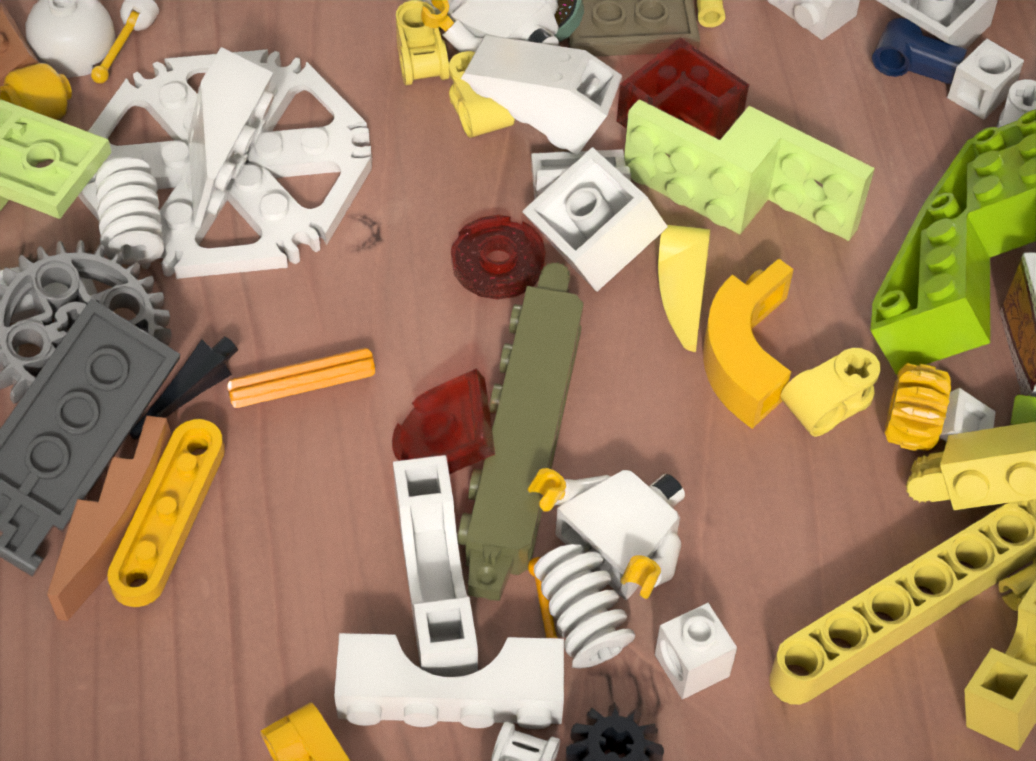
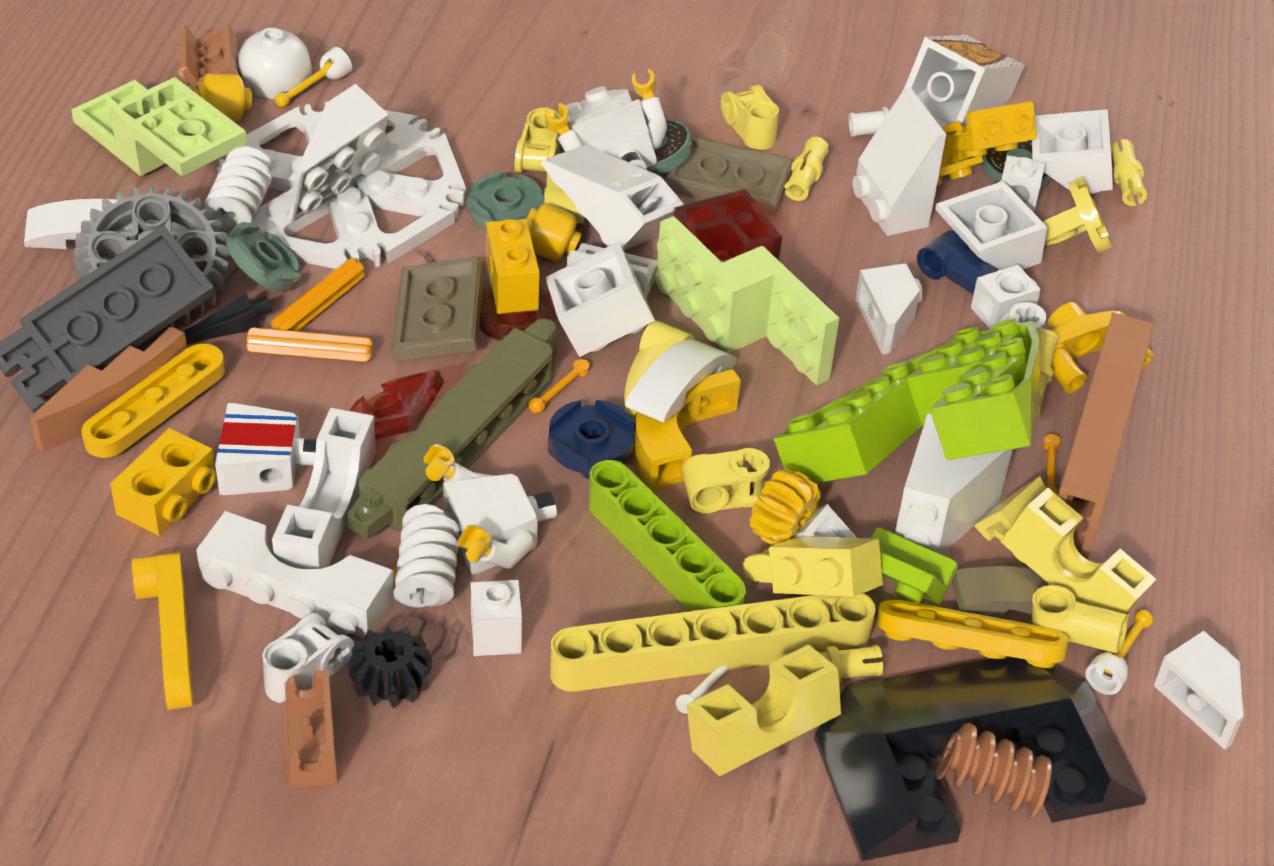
camera: 20 degrees right, 10 degrees down
(199, 288) = (263, 257): none -> sand green tile
(229, 614) = (164, 481): none -> yellow brick
(279, 314) = (319, 296): none -> light orange axle
(327, 532) = (260, 450): none -> white torso
(415, 145) = (489, 190): none -> sand green tile
(420, 285) = (438, 309): none -> dark tan tile
(482, 209) = (512, 266): none -> yellow brick
(490, 150) = (552, 231): none -> yellow head
(603, 304) = (580, 368): none -> light orange hinge
(666, 412) = (581, 454): none -> dark blue plate
(732, 292) = (676, 371): none -> white slope
(828, 514) = (661, 540): none -> lime beam
(876, 123) = (888, 302): none -> white slope
(928, 670) = (684, 699): none -> white hinge

